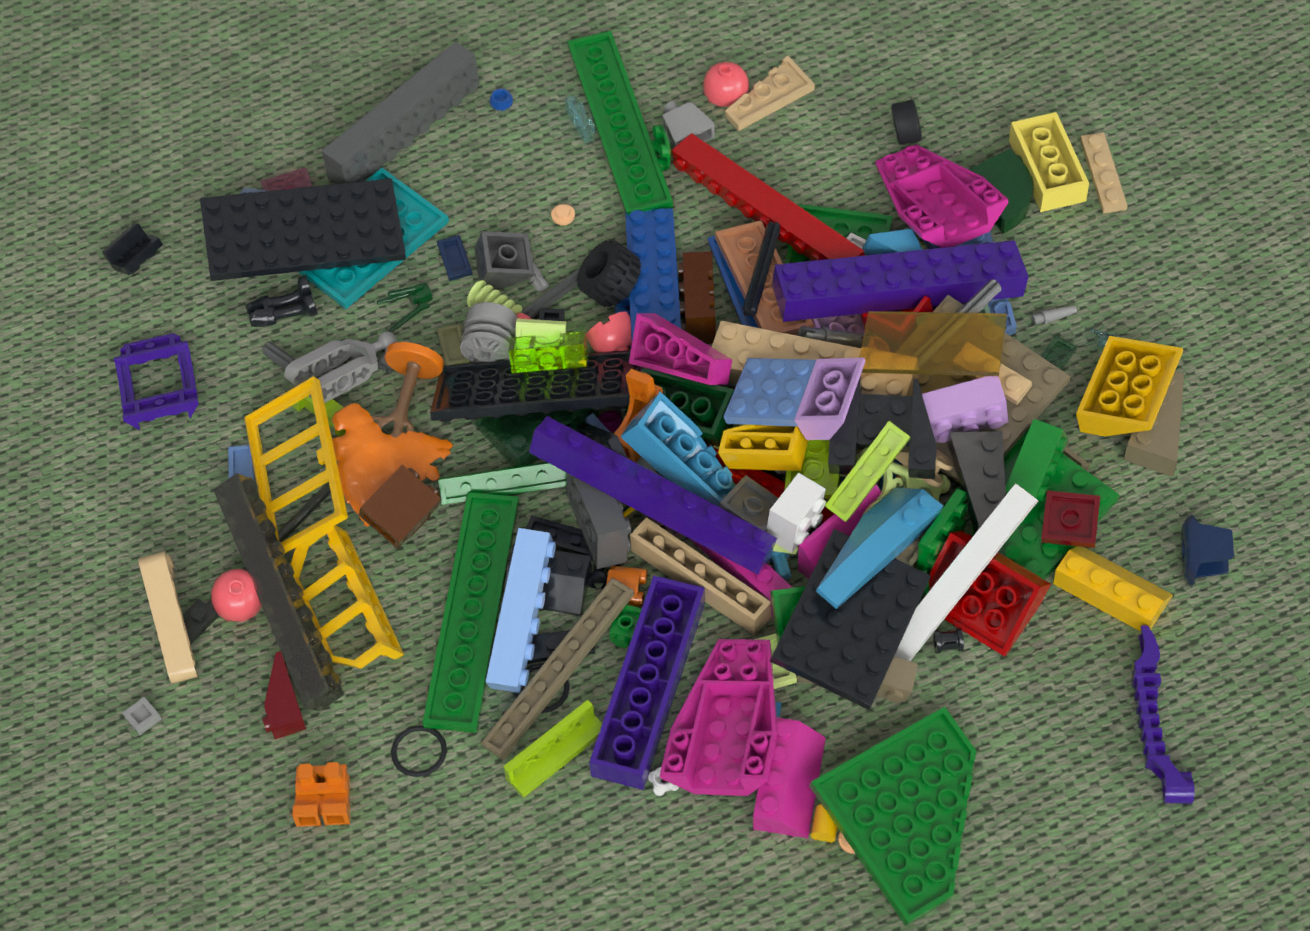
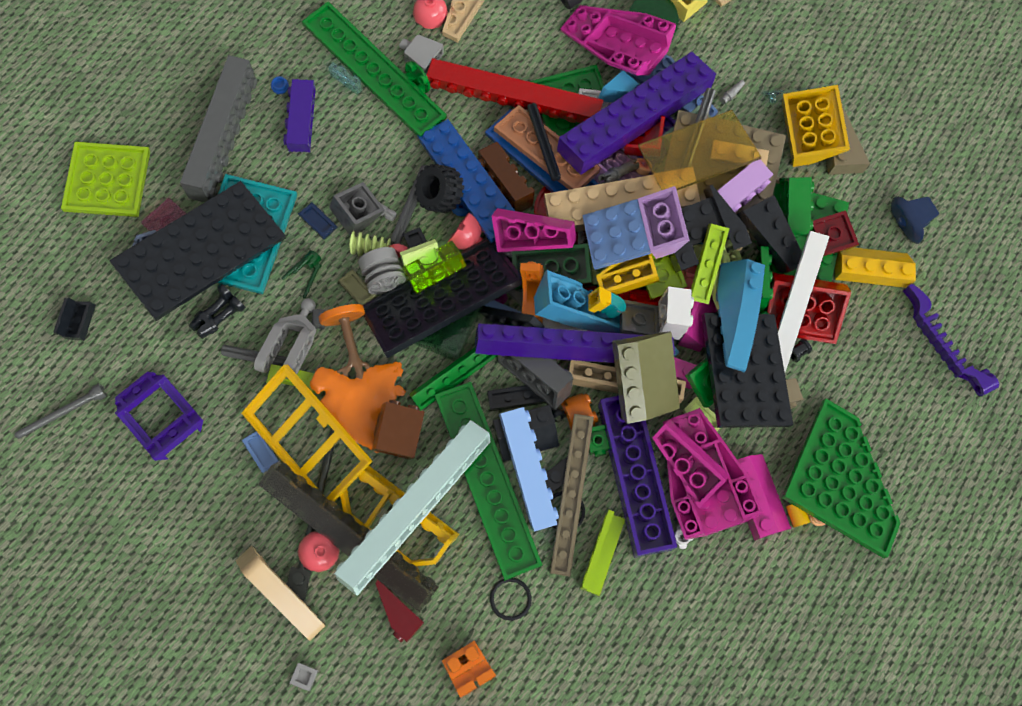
camera: 40 degrees left, 15 degrees up
(106, 333) = (95, 393): none -> dark grey piece
(252, 124) = (106, 179): none -> lime plate
(364, 585) = (412, 508): none -> light aqua brick
(503, 139) = (300, 117): none -> dark purple brick
(563, 214) = (375, 155): light nougat plate -> none
(715, 563) = (646, 376): none -> olive slope
(715, 691) = (692, 464): none -> dark pink wedge
(718, 465) = (606, 302): none -> leg
(1059, 352) = (750, 117): clear green tile -> none

